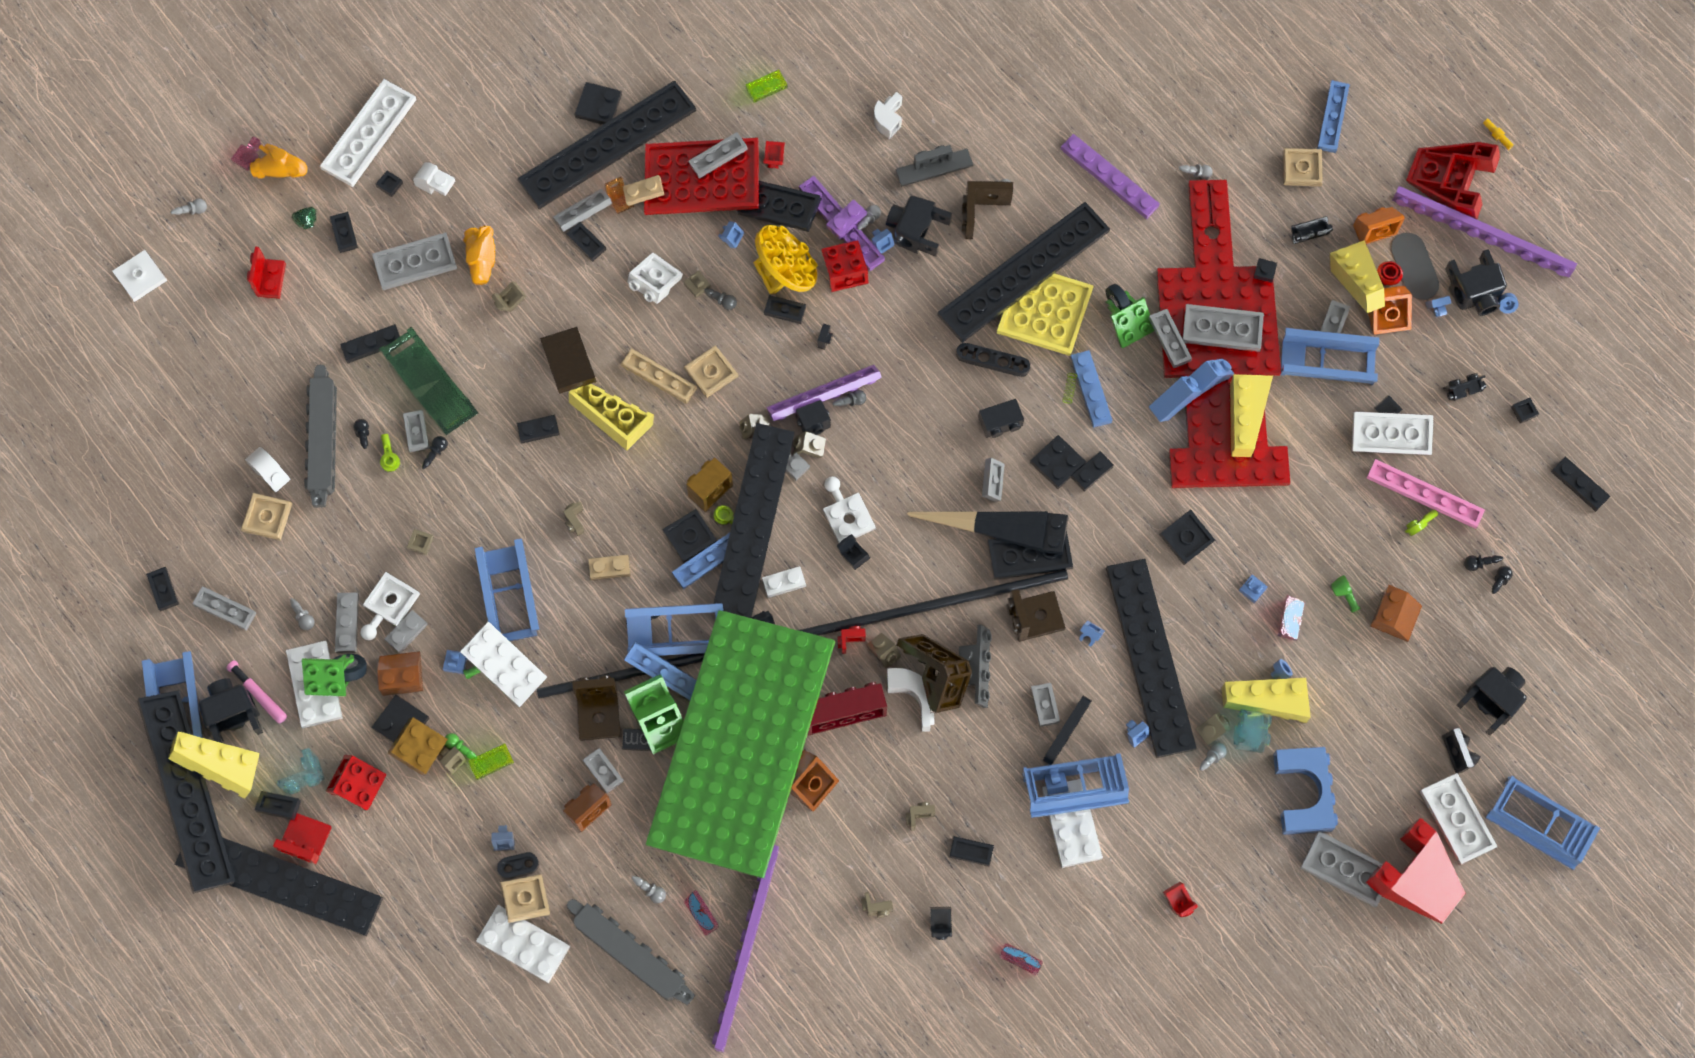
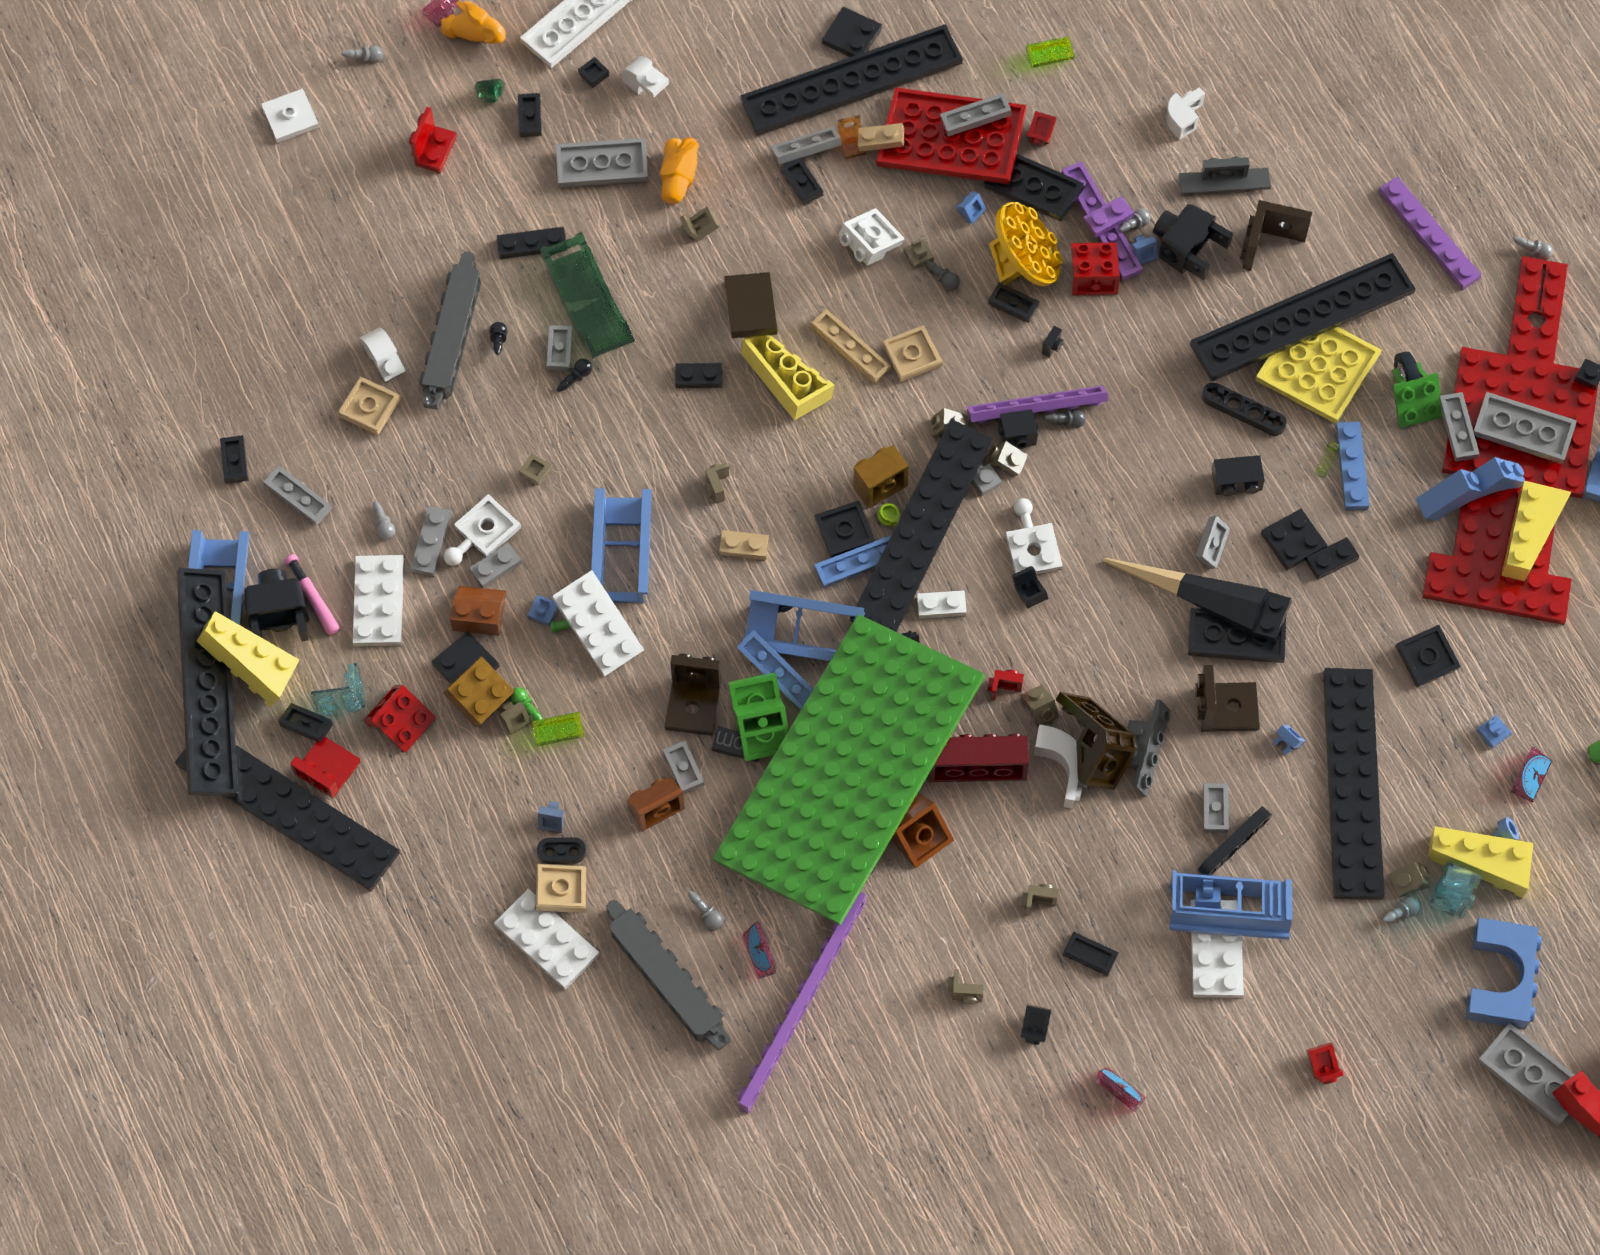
camera: 15 degrees right, 5 degrees down
(332, 676) = (400, 592): bright green plate -> none
(389, 460) = (522, 374): lime plate -> none
(845, 624) = (1020, 666): black piece -> none
(1137, 733) = (1317, 863): medium blue tile -> none

